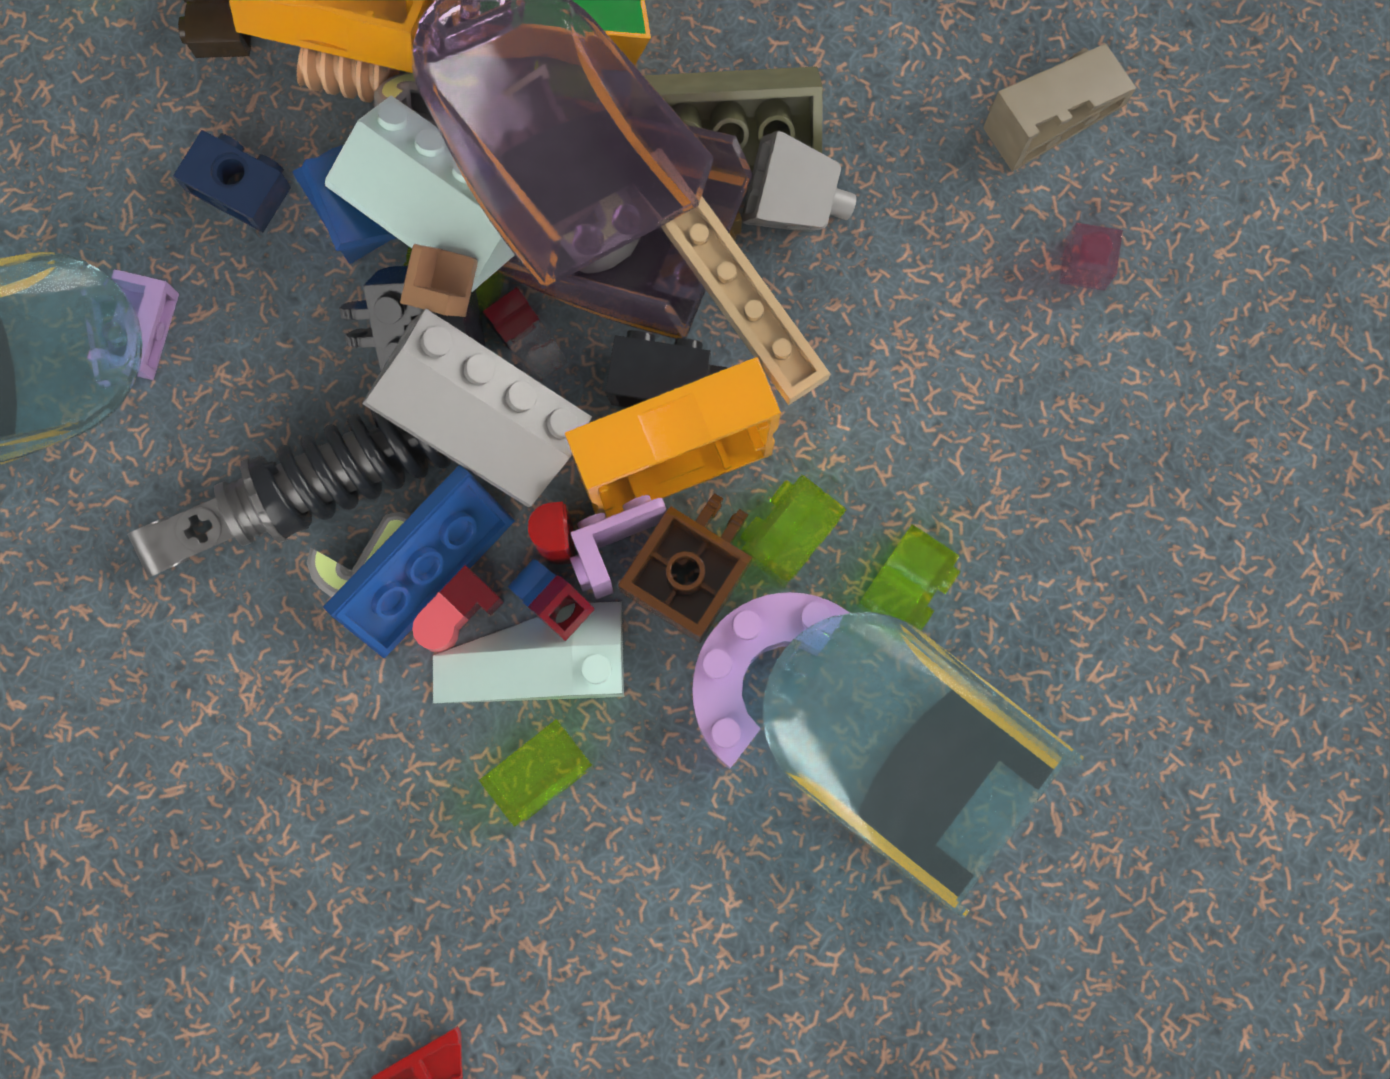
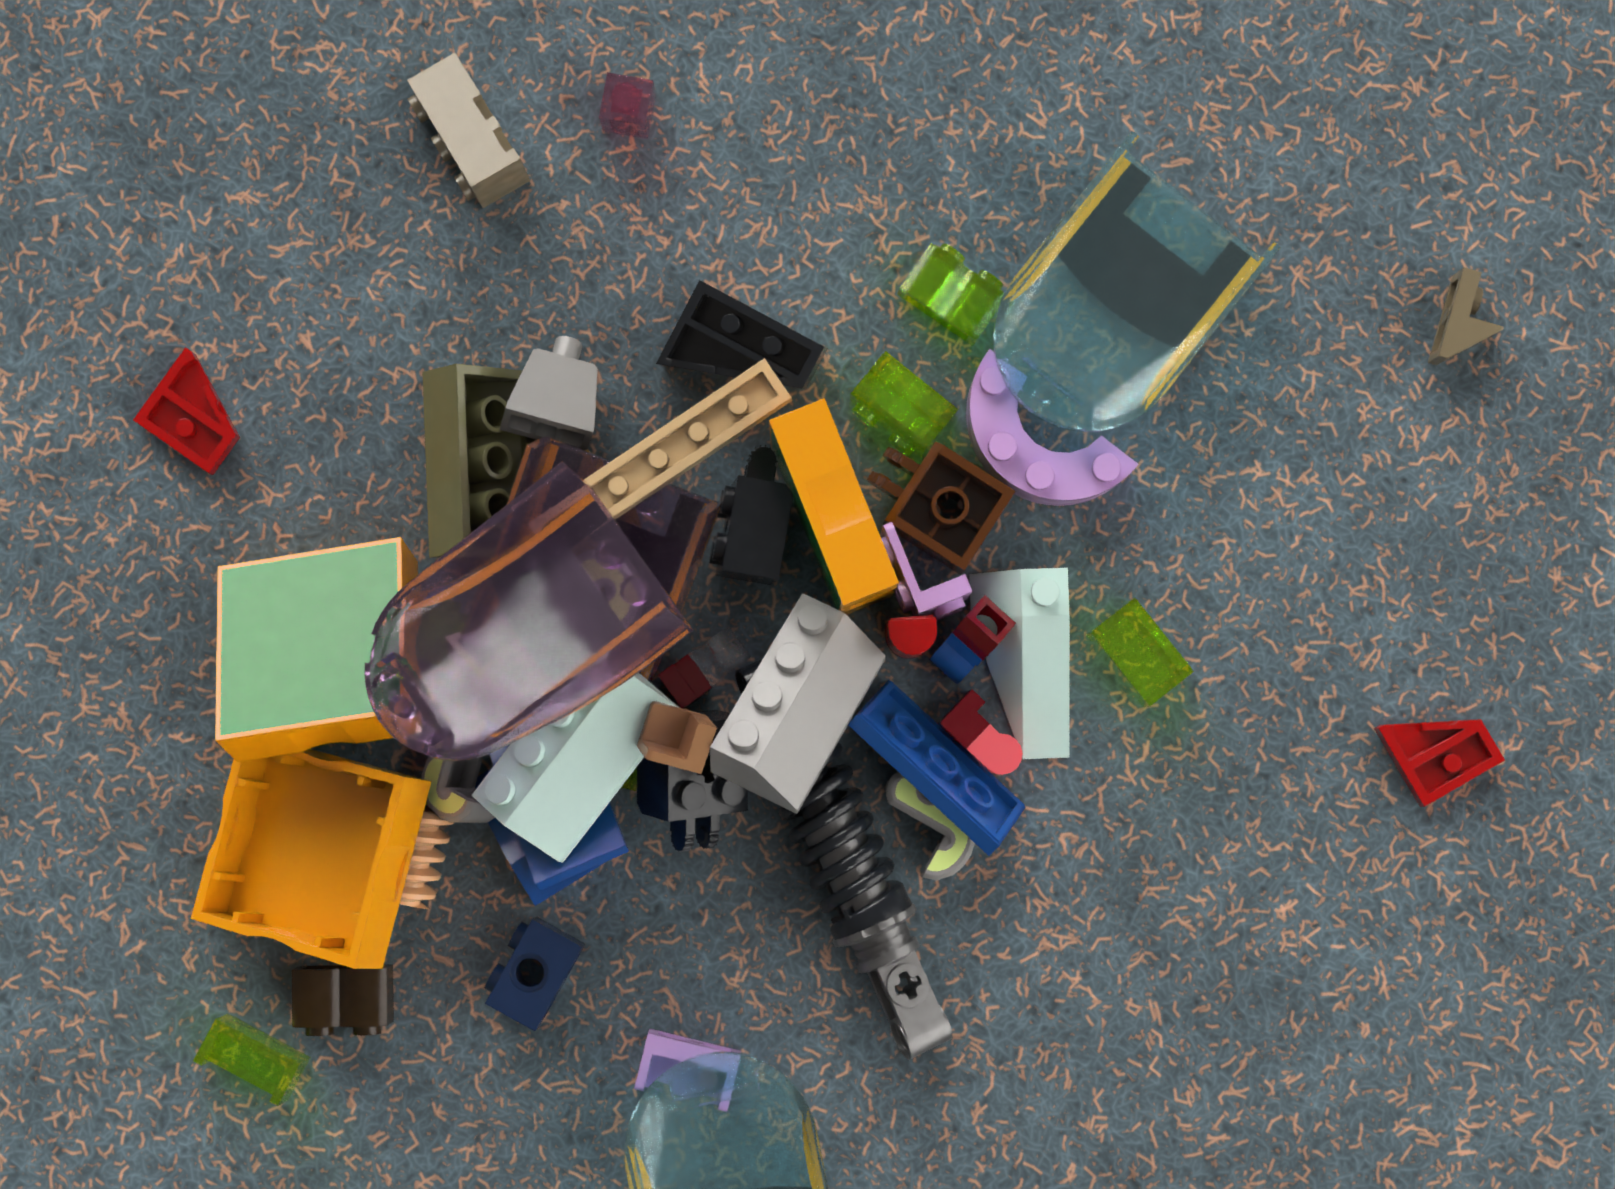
camera: 95 degrees left, 5 degrees up
(862, 351) = (730, 337): none -> black wedge

